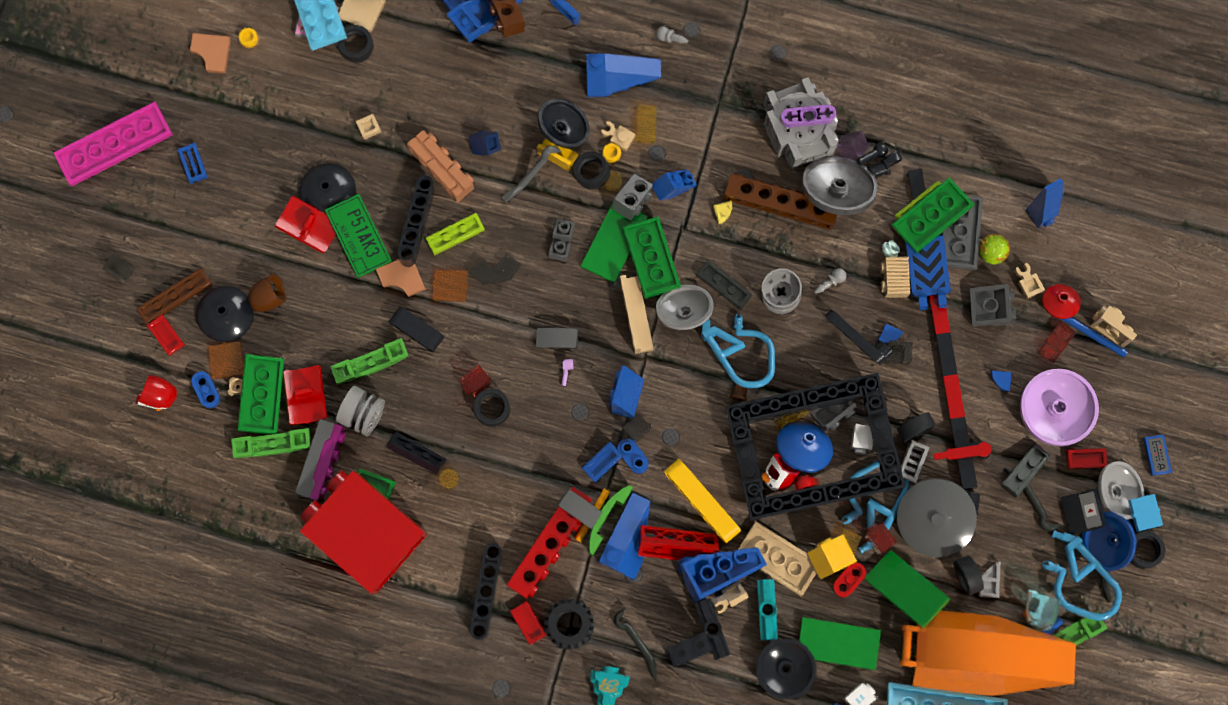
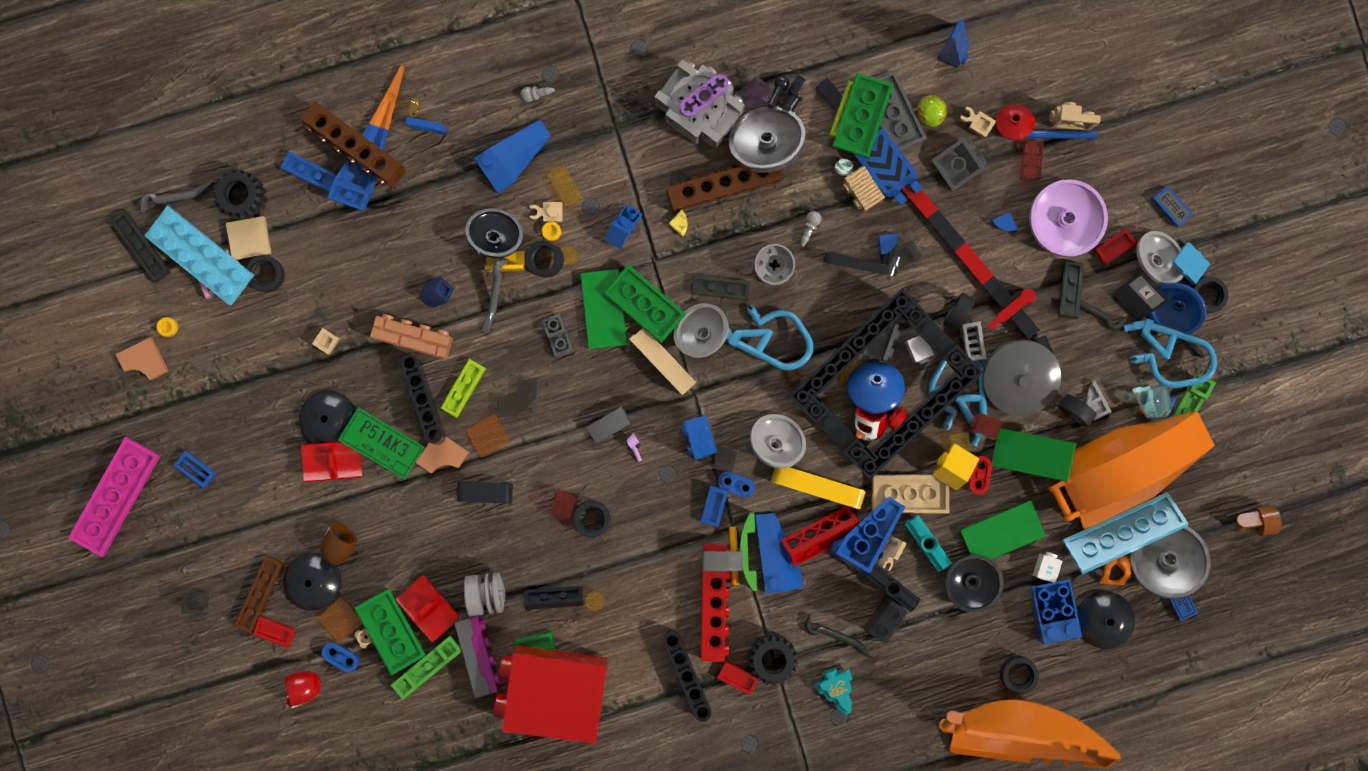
camera: 30 degrees left, 10 degrees up
(370, 363) = (463, 546): bright green slope -> none
(630, 195) = (593, 261): dark grey brick -> none
(697, 434) = (782, 433): none -> light grey dish

